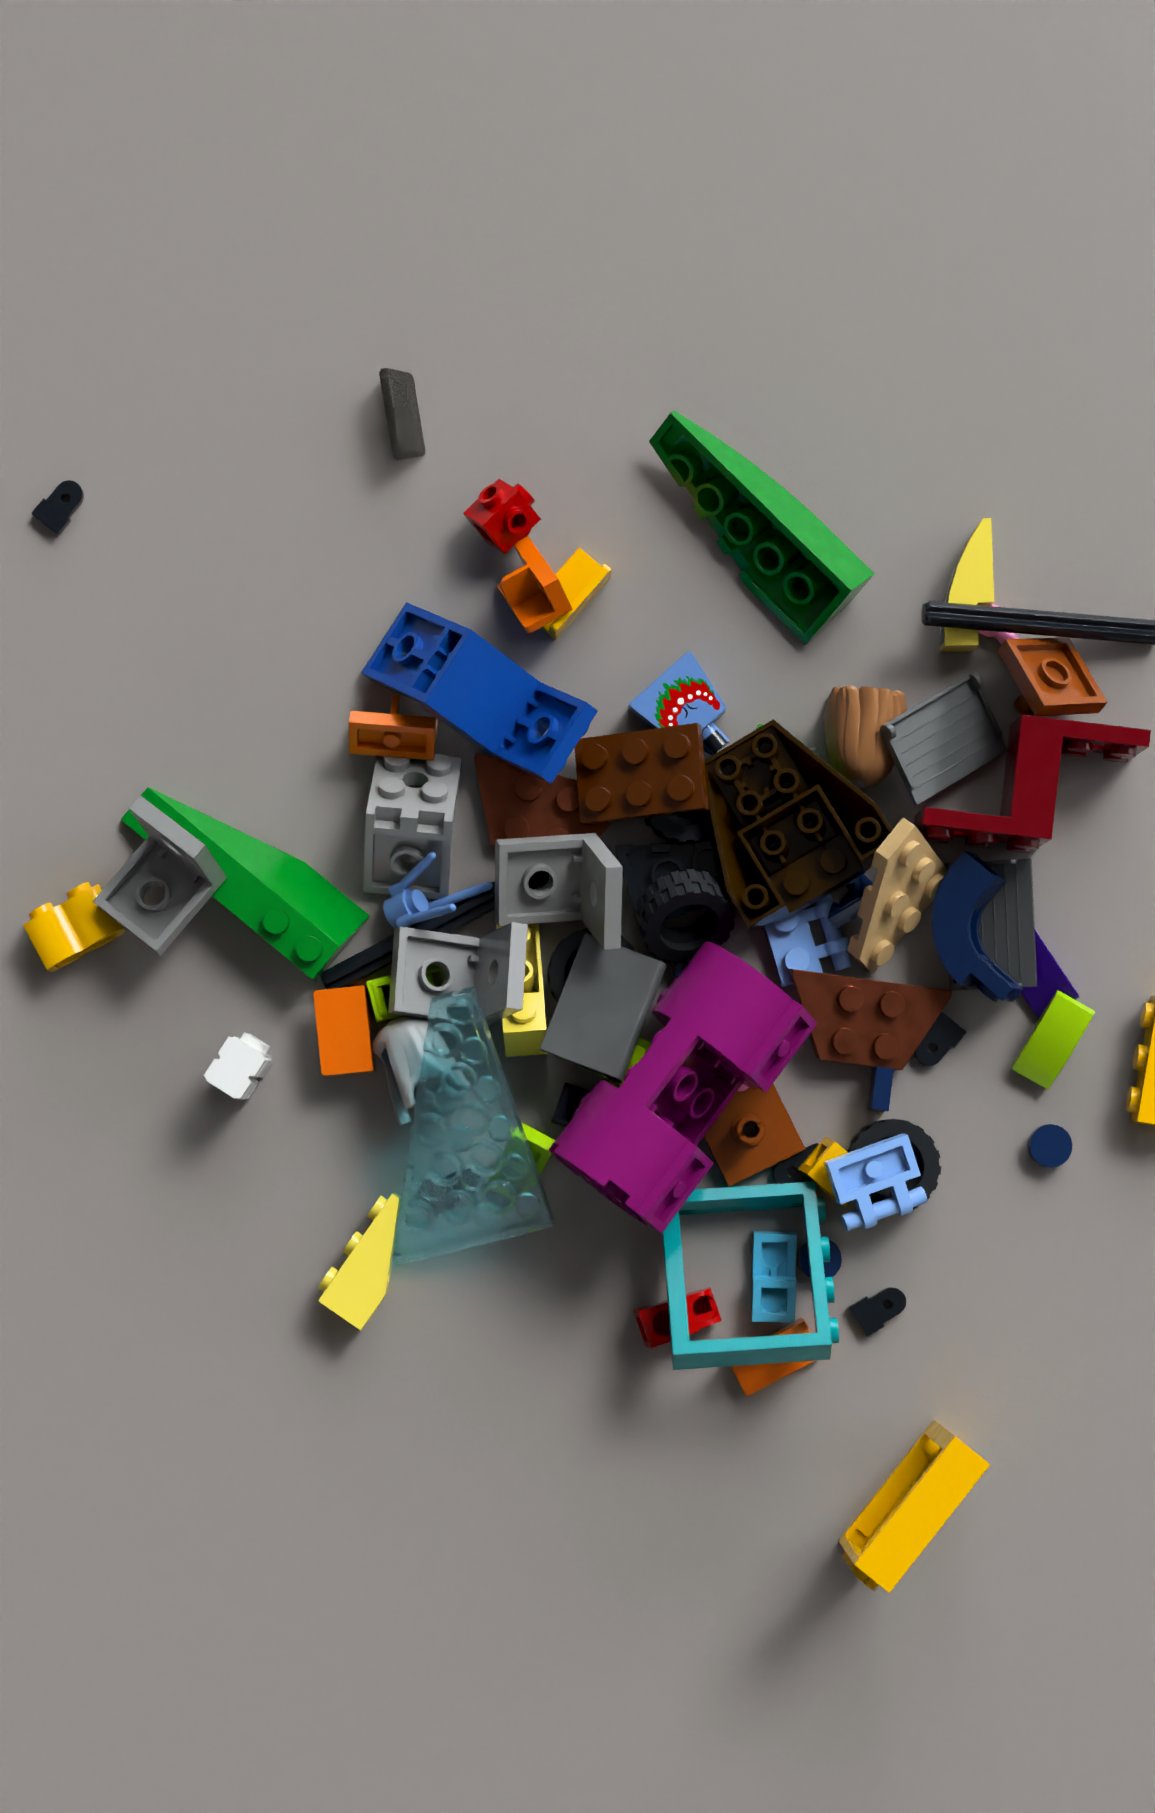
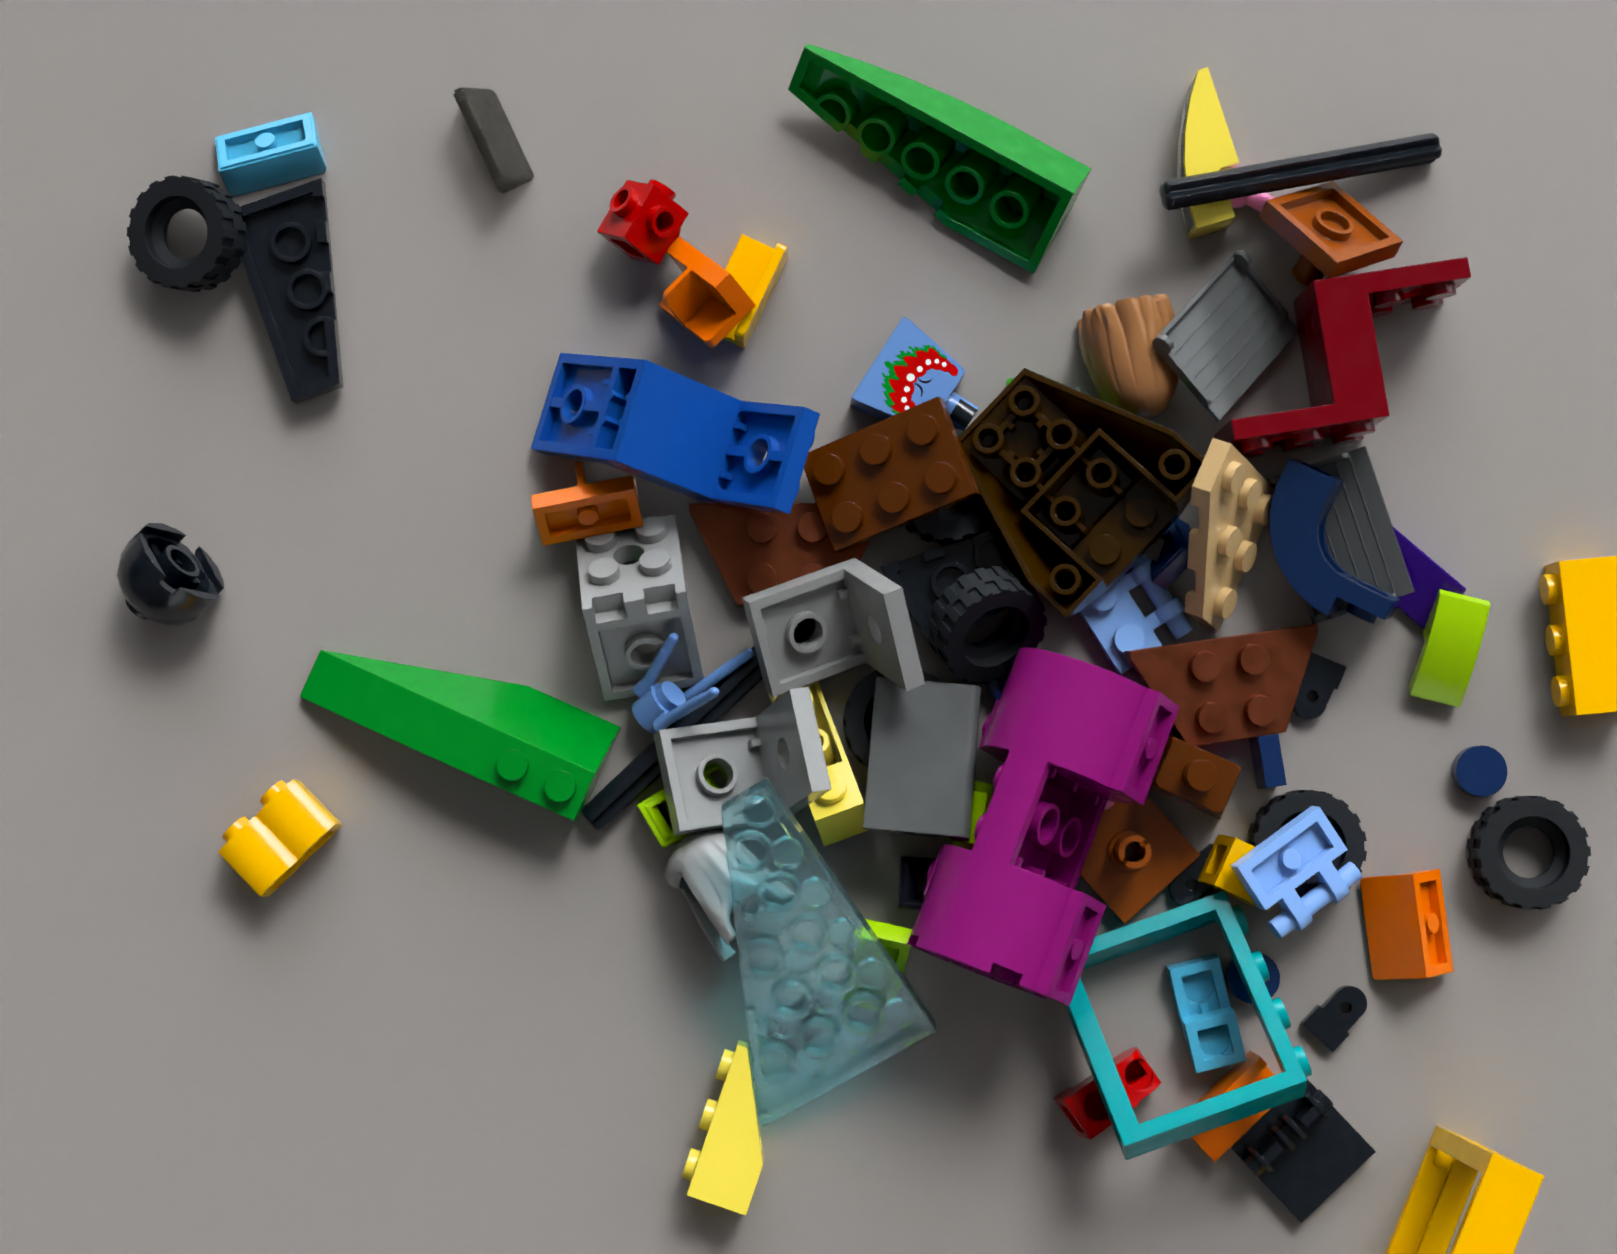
camera: 15 degrees left, 0 degrees up
(41, 696) = (165, 578): none -> black cylinder
(54, 511) = (127, 363): black piece -> none
(103, 417) = (150, 226): none -> black tyre
(168, 860) = (361, 730): light grey bracket -> none
(208, 480) = (294, 286): none -> black wing
(218, 377) = (270, 154): none -> medium azure slope
(239, 1066) = (517, 946): white brick -> none
(344, 1030) = (628, 869): orange panel -> none
(817, 1084) = (1195, 777): none -> reddish brown torso
(820, 1407) = (1303, 1151): none -> black hinge
(955, 1252) = (1406, 925): none -> orange panel
(1102, 1221) = (1568, 846): none -> black tyre

